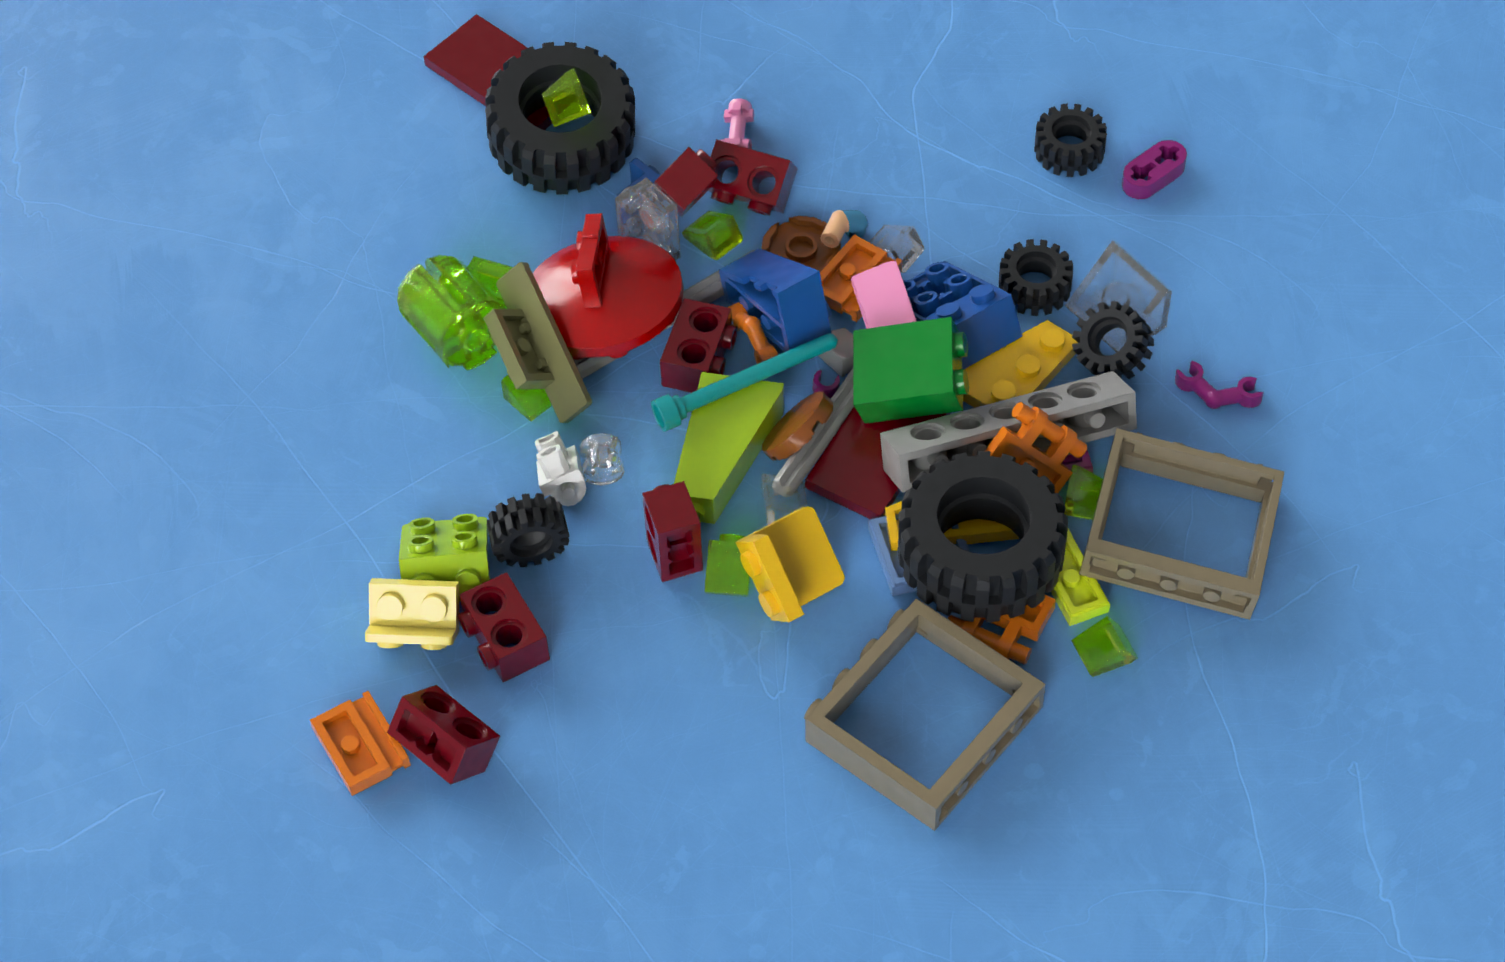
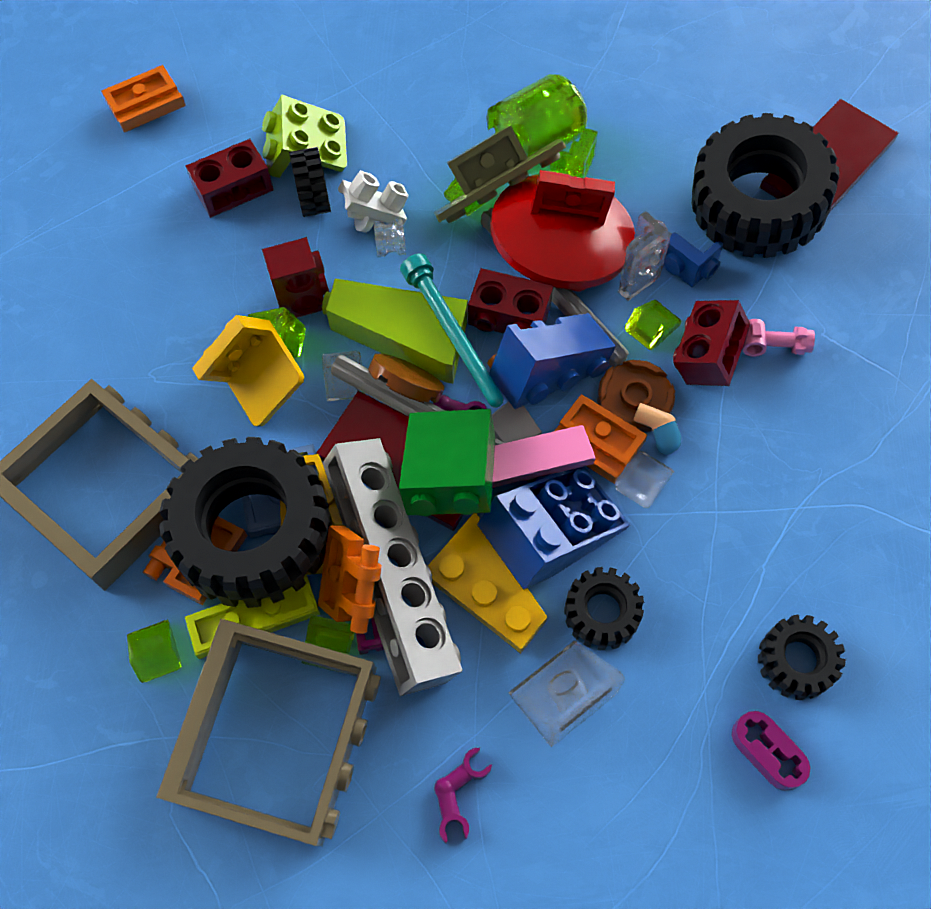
camera: 90 degrees right, 10 degrees up
(413, 613) = (243, 115): light yellow bracket -> none
(443, 734) = (126, 134): dark red brick -> none
(566, 99) = (759, 164): clear neon green slope -> none
(688, 179) = (673, 269): dark red brick -> none
(1101, 323) = (513, 693): black tyre -> none

